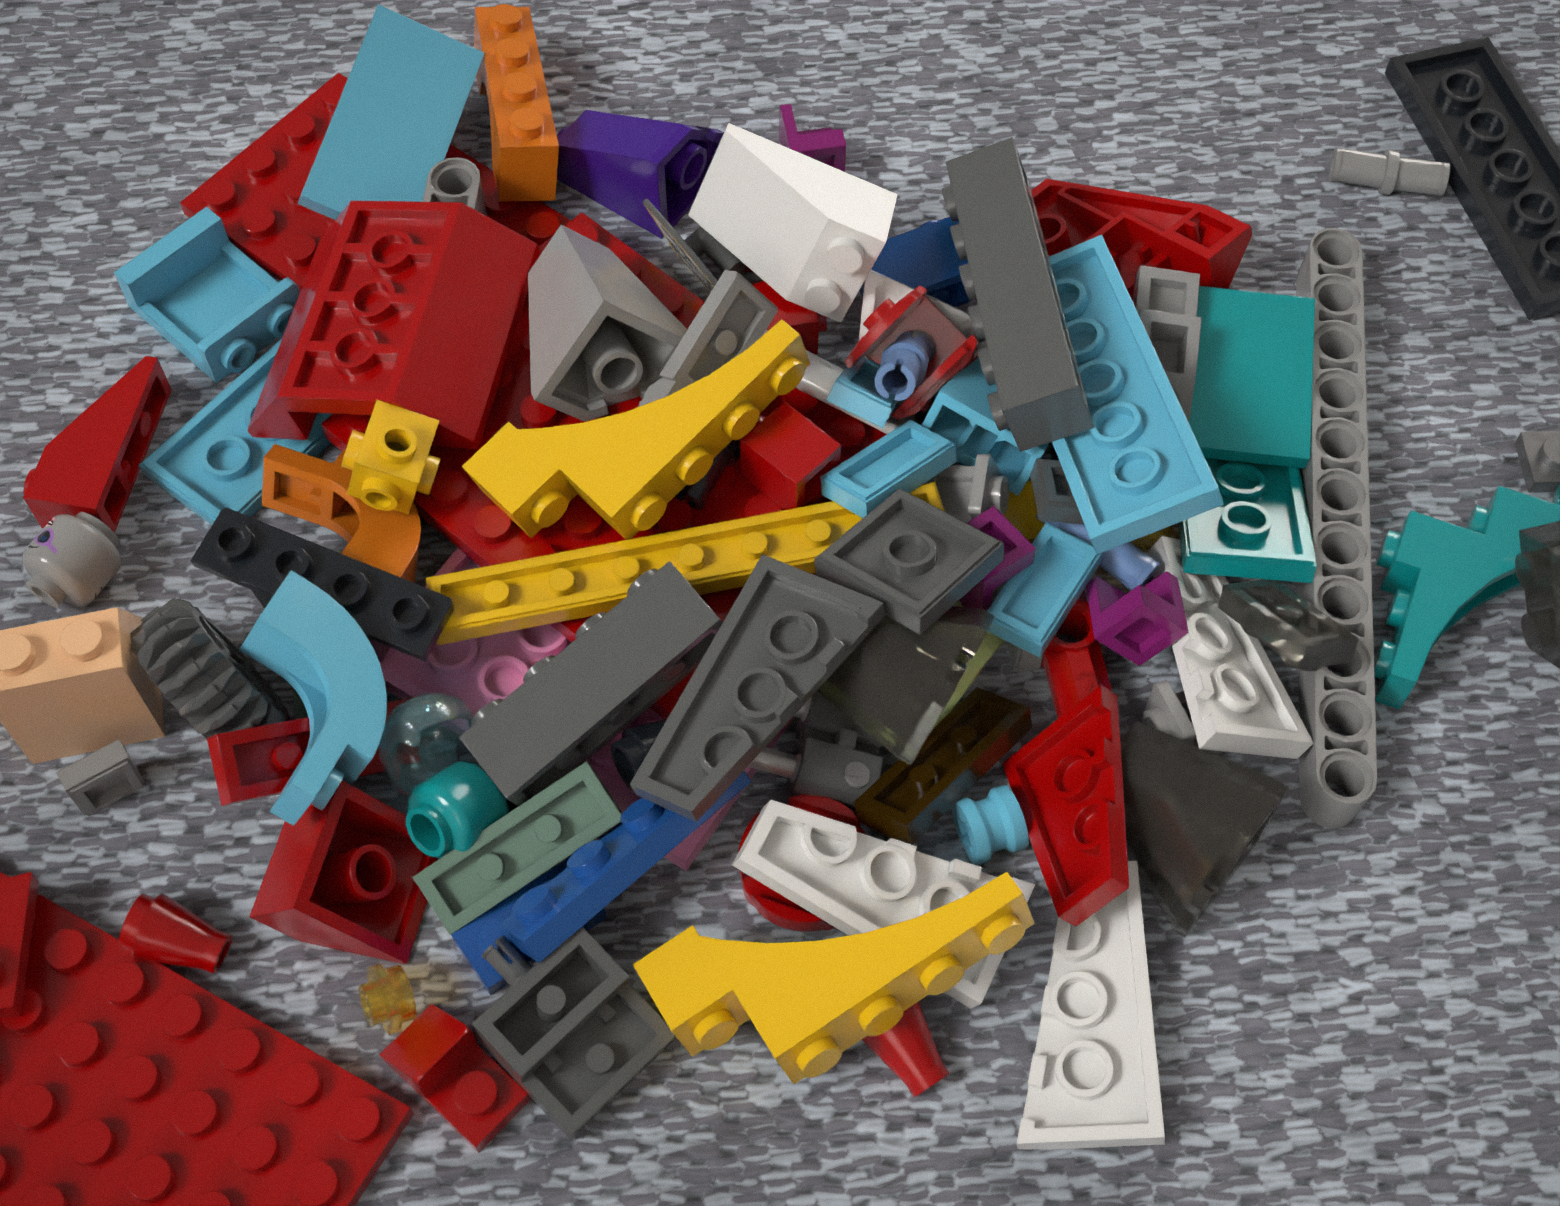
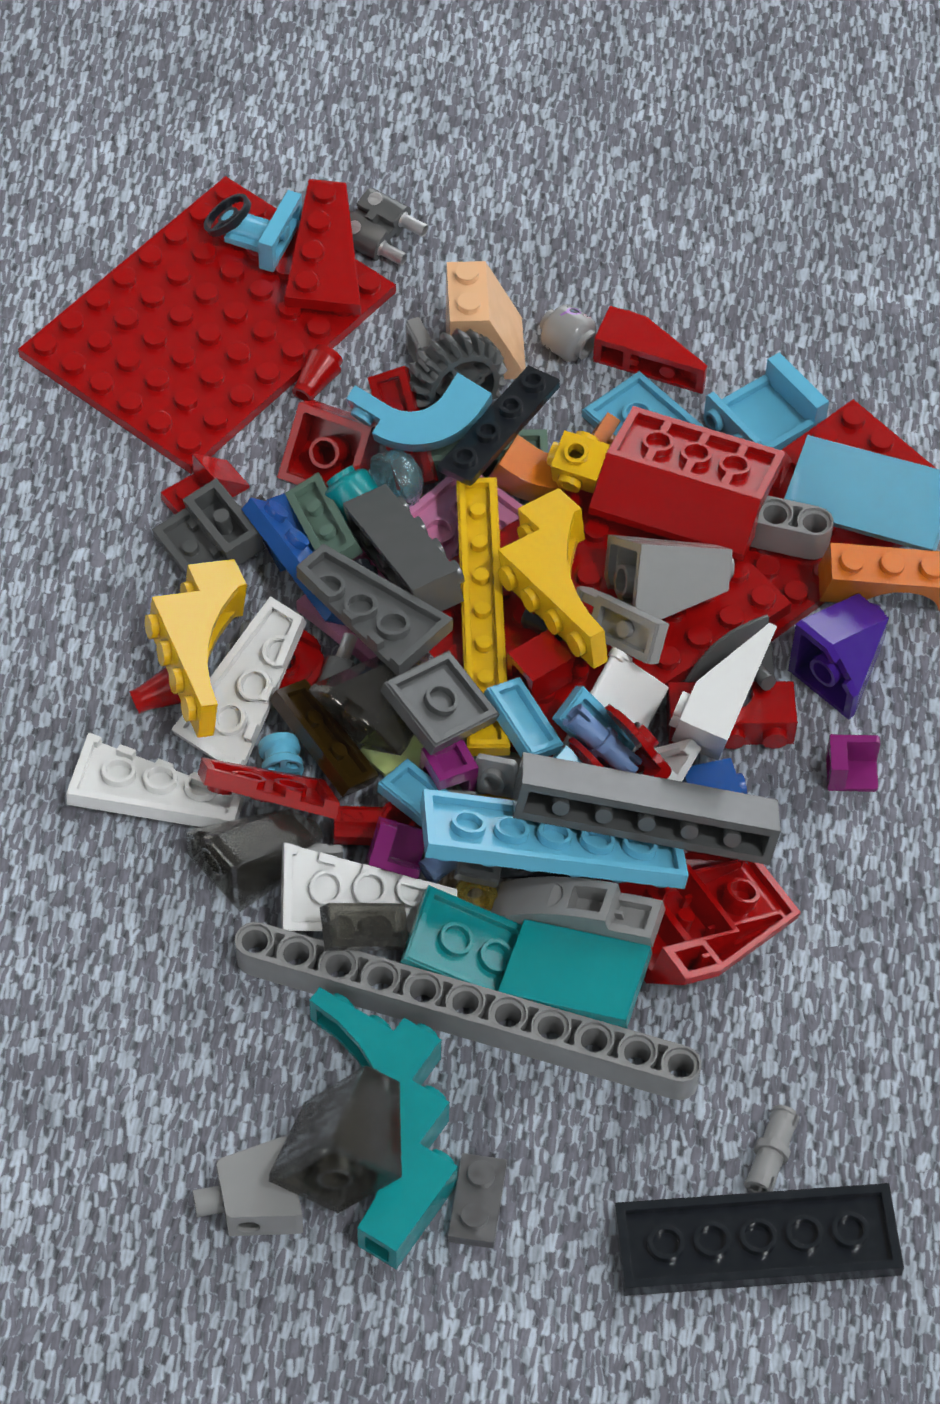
camera: 100 degrees right, 5 degrees down
(387, 998) = (254, 460): clear yellow plate -> none

